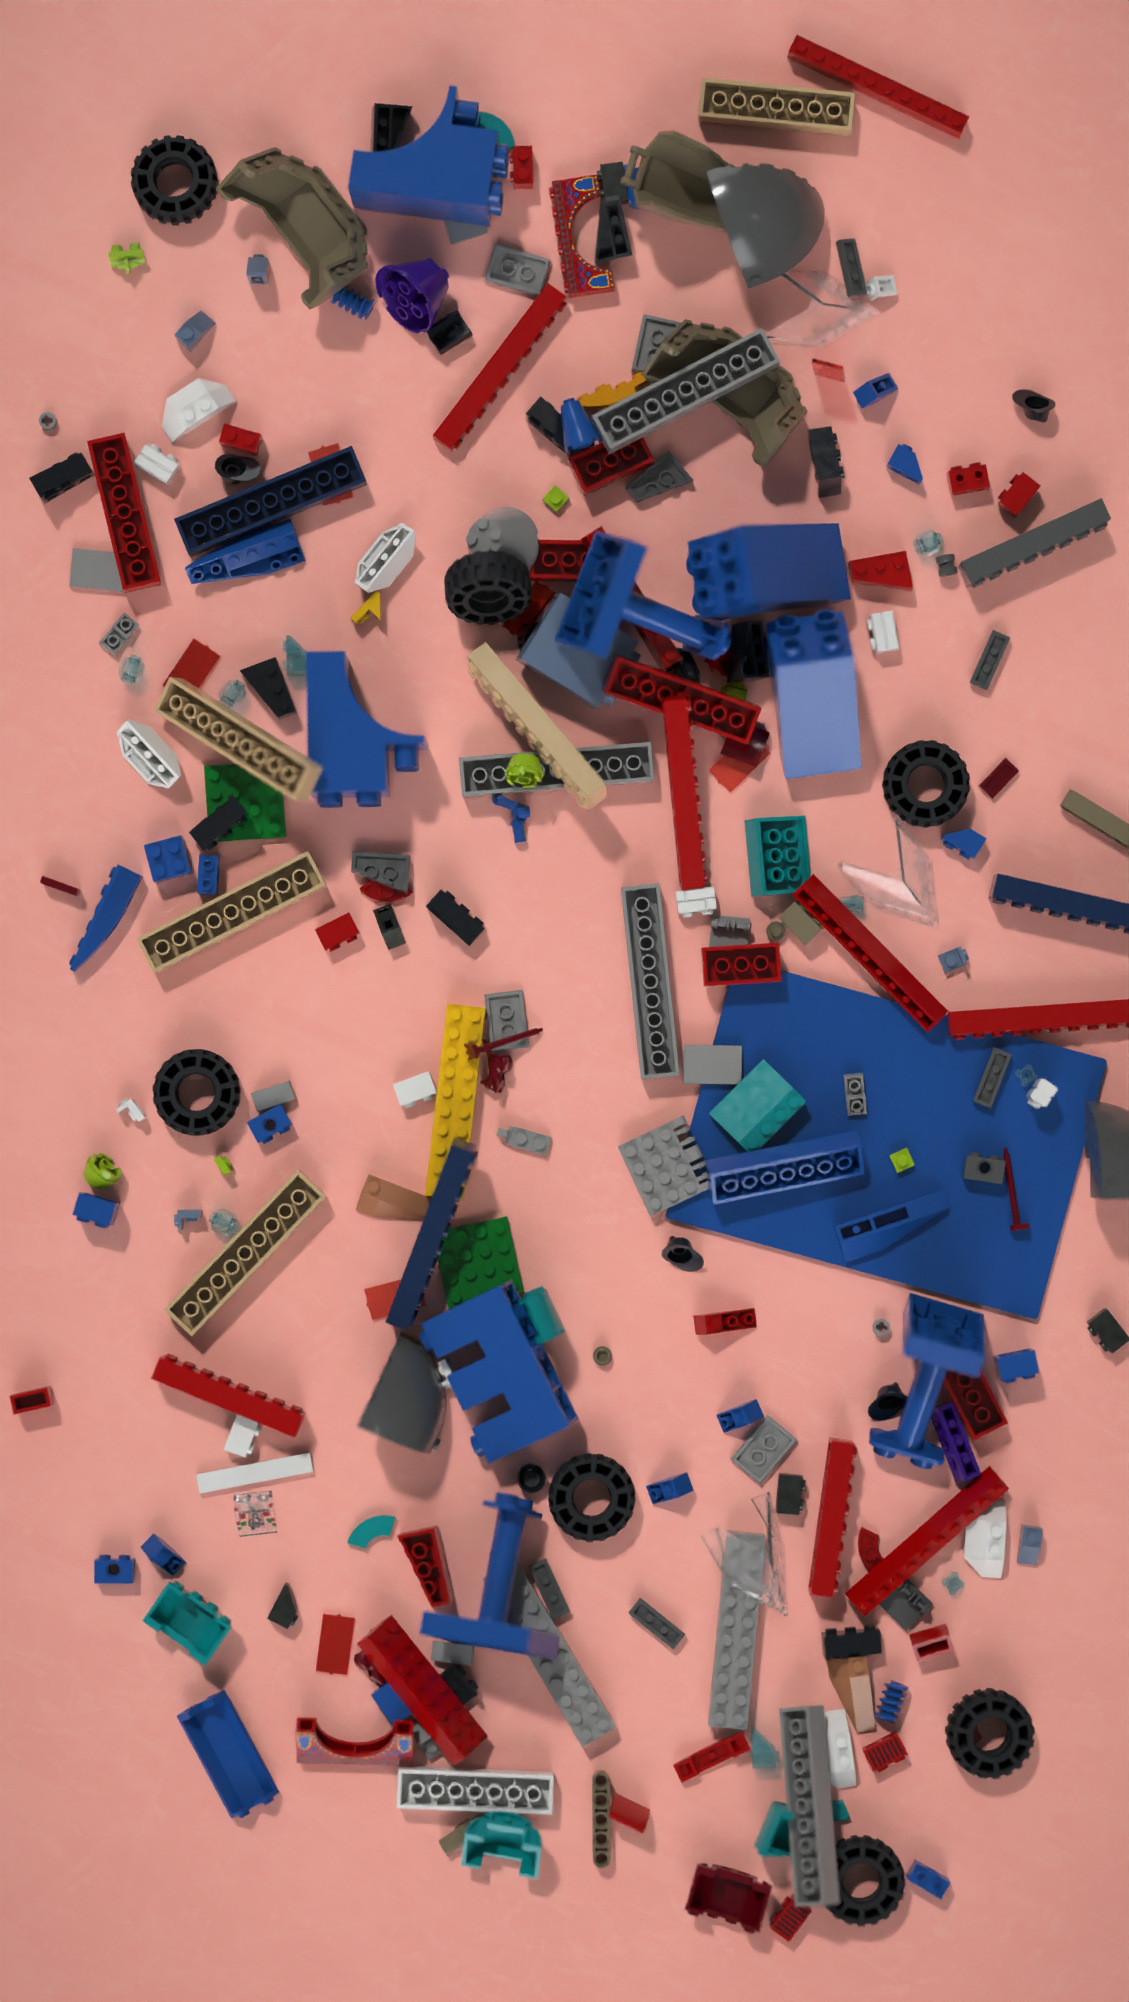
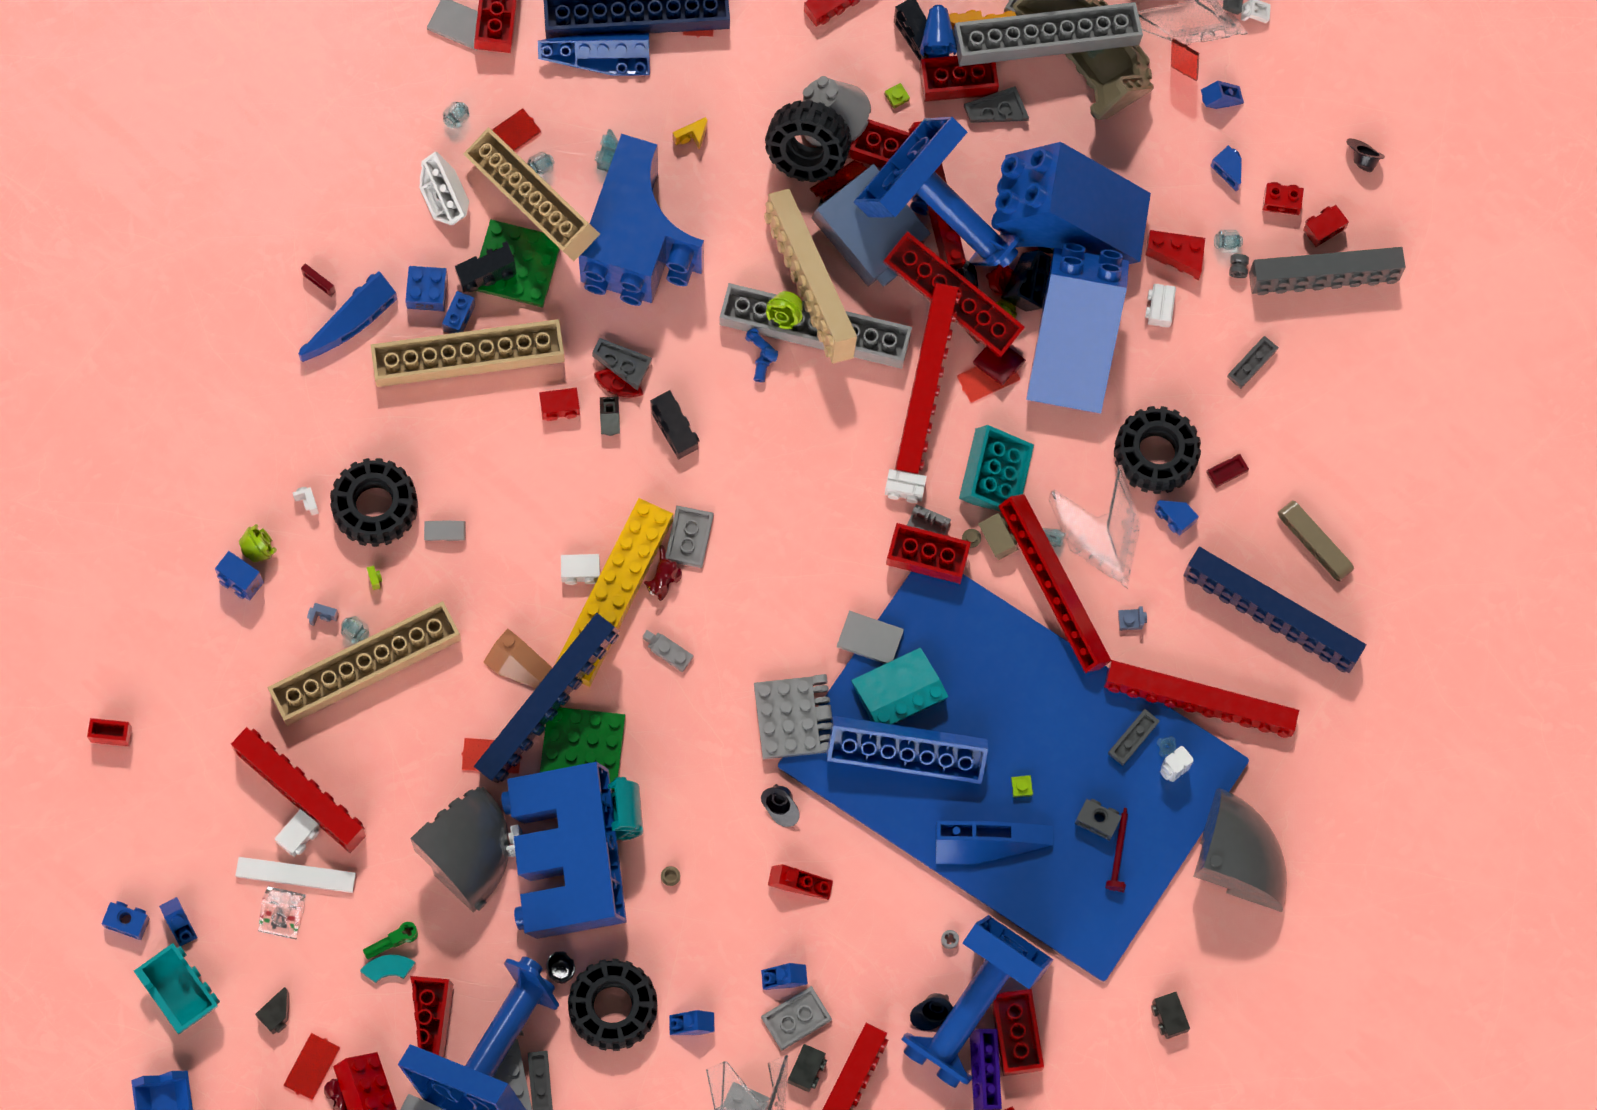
camera: 15 degrees right, 15 degrees down
(119, 634) = (456, 83): light grey slope -> none
(258, 1124) = (440, 547): blue brick -> none
(271, 686) = (578, 169): black wedge -> none
(365, 1506) = (393, 939): none -> green connector
(386, 558) = (725, 94): white wedge -> none
(474, 1050) = (649, 544): dark red piece -> none
(650, 981) = (836, 543): light grey brick -> none
(825, 461) = (1156, 141): black wedge -> none
(855, 1094) = (997, 710): light grey slope -> none
(1015, 1365) = (1070, 1015): blue brick -> none

